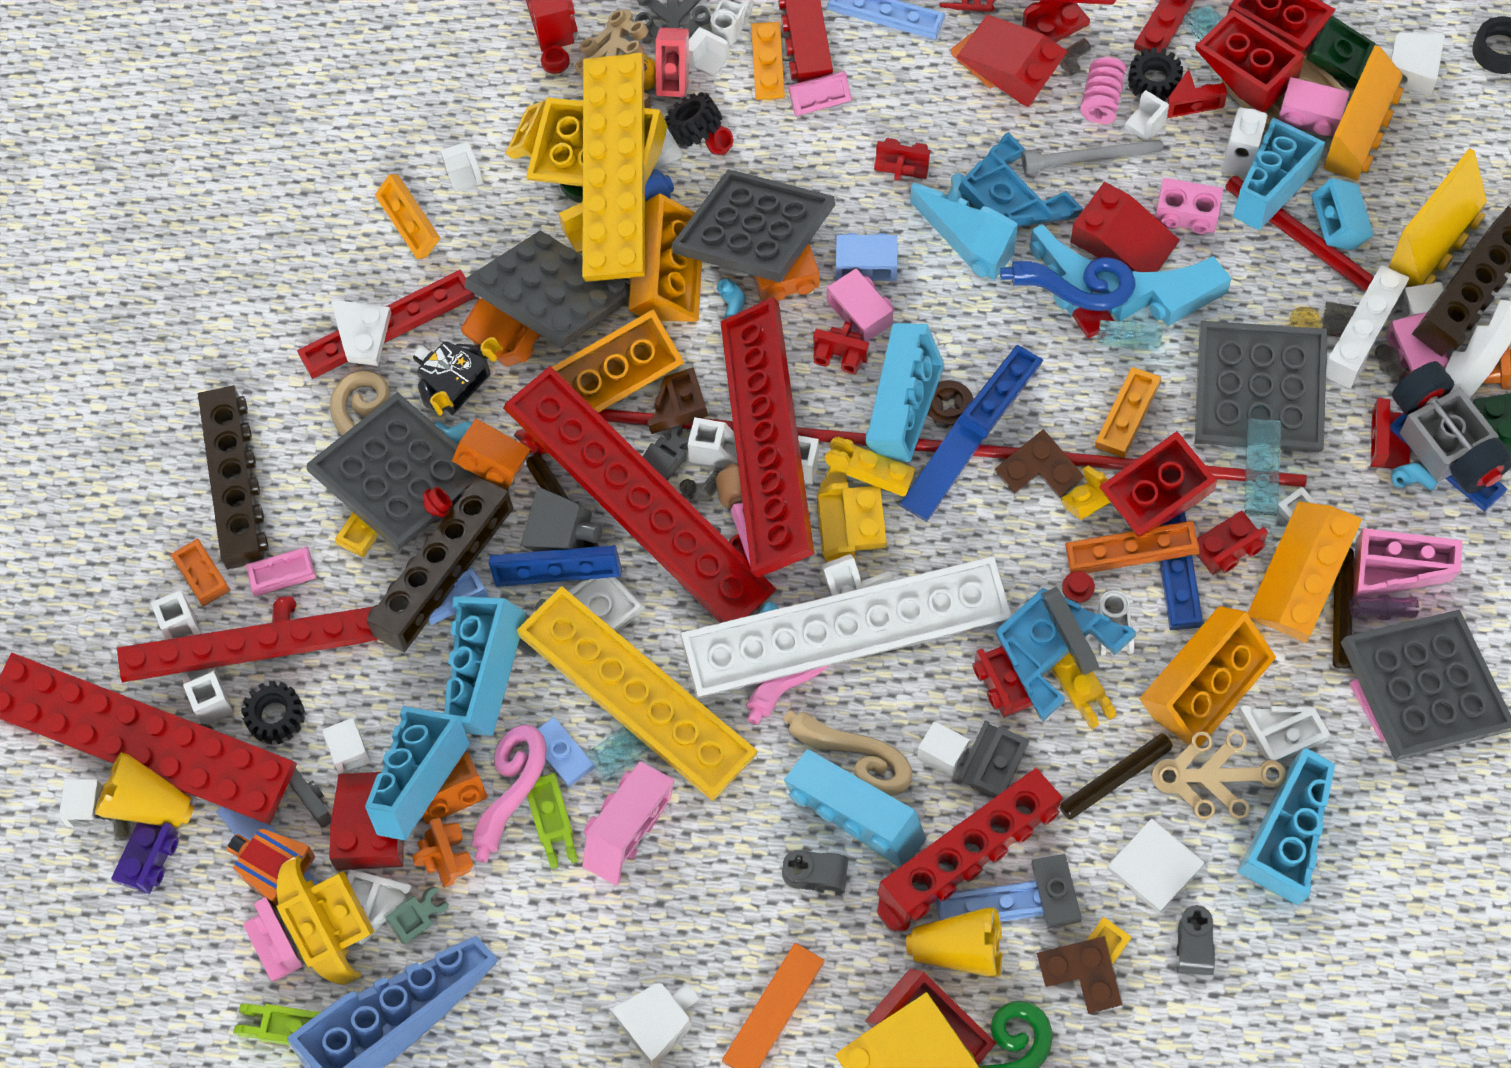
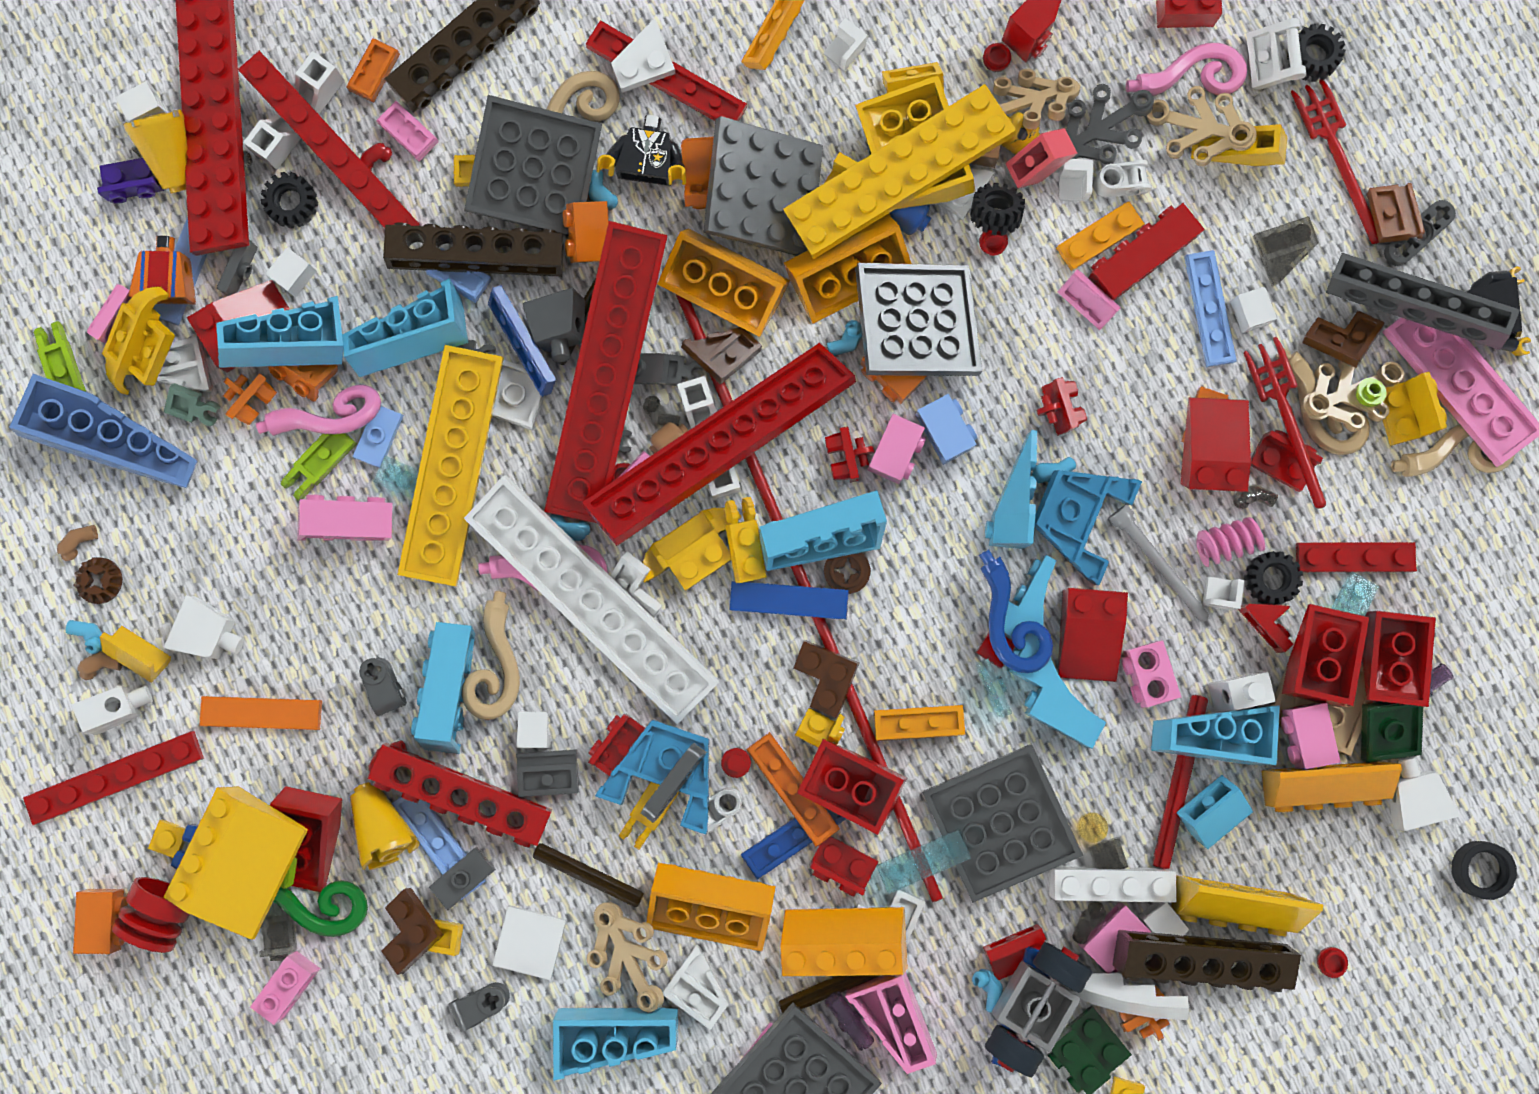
camera: 55 degrees right, 20 degrees up
(436, 502) = (516, 216): red plate -> none
(1000, 391) = (875, 609): blue tile -> none

